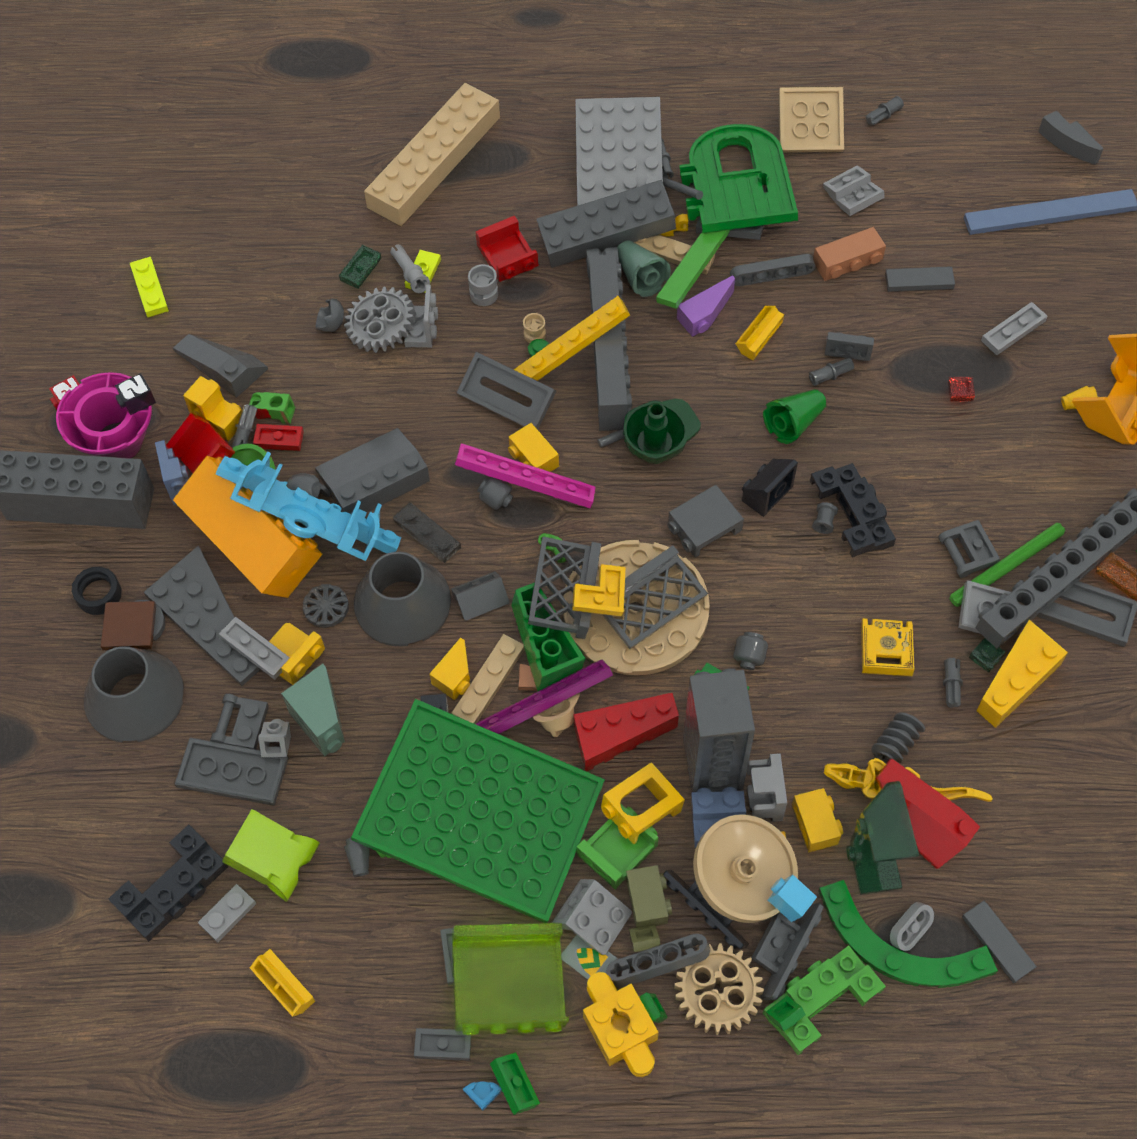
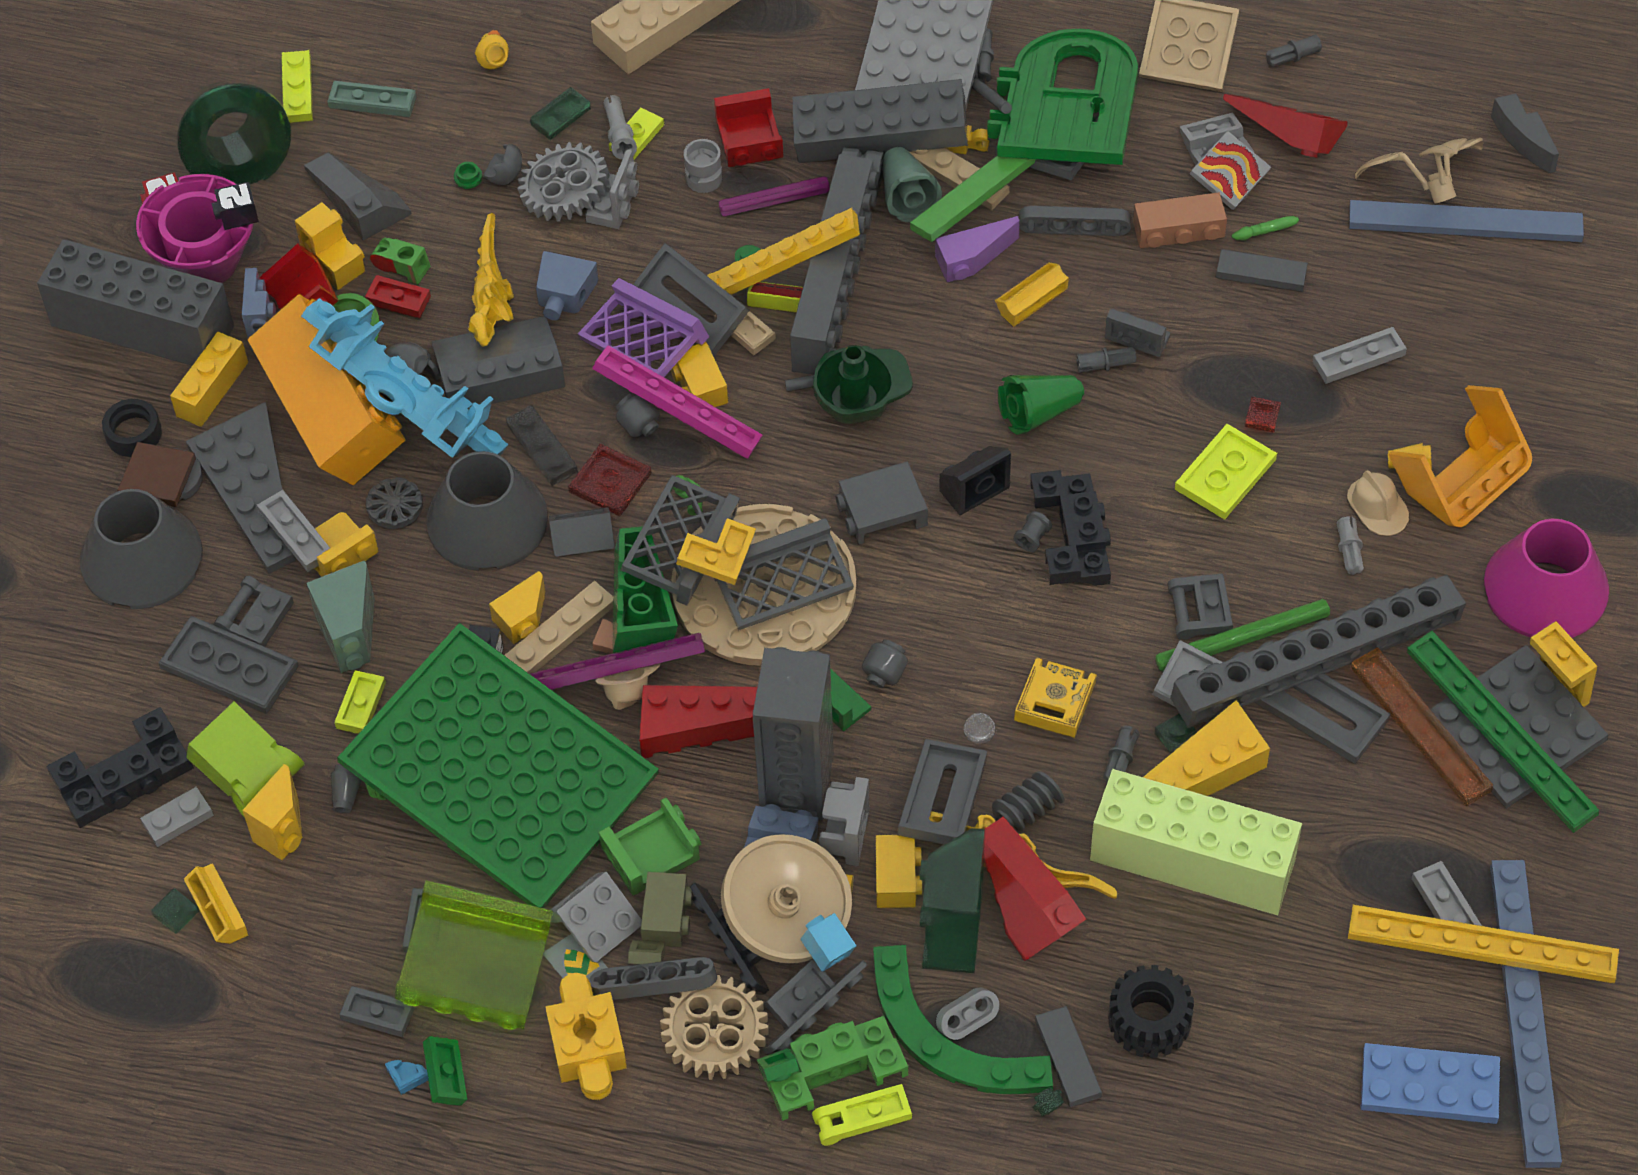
camera: 15 degrees right, 5 degrees down
(125, 347) = (245, 155): none -> clear green cone
(148, 537) = (209, 379): none -> yellow brick
(210, 284) = (371, 98): none -> sand green tile
(244, 426) = (361, 272): dark grey axle -> none
(249, 996) = (175, 910): none -> clear green plate
(275, 731) = (291, 630): light grey brick -> none
(293, 228) = (492, 50): none -> yellow animal
(303, 329) = (468, 175): none -> green plate
(310, 897) = (275, 815): none -> yellow slope
(348, 780) = (360, 701): none -> neon yellow plate
(351, 417) = (489, 290): none -> yellow animal
(405, 399) = (564, 283): none -> sand blue torso
(482, 405) = (656, 314): none -> medium lavender fence
(488, 548) = (610, 479): none -> clear red tile
(534, 327) = (750, 229): tan wheel -> none
(542, 297) = (774, 196): none -> magenta axle
(562, 408) = (752, 333): none -> tan plate
(571, 375) = (774, 296): none -> neon yellow slope
(631, 826) = (670, 823): yellow panel -> none
(653, 1007) = (631, 1028): green tile -> none
(838, 685) = (979, 728): none -> clear plate
(842, 719) = (933, 761): none -> dark grey piece
(859, 1033) = (862, 1114): none -> neon yellow plate
(873, 208) = (1230, 170): none -> slope
(899, 252) = (1266, 227): none -> bright green piece
(910, 167) = (1300, 129): none -> red wedge
(950, 439) = (1225, 471): none -> neon yellow plate
(999, 985) = (1048, 1101): none -> clear green plate
(1025, 186) = (1440, 182): none -> tan plant
(1041, 742) = (1195, 841): none -> yellowish green brick
(1060, 475) = (1350, 545): none -> light grey axle
(1066, 875) = (1154, 987): none -> black tyre
(1067, 439) = (1378, 504): none -> tan piece

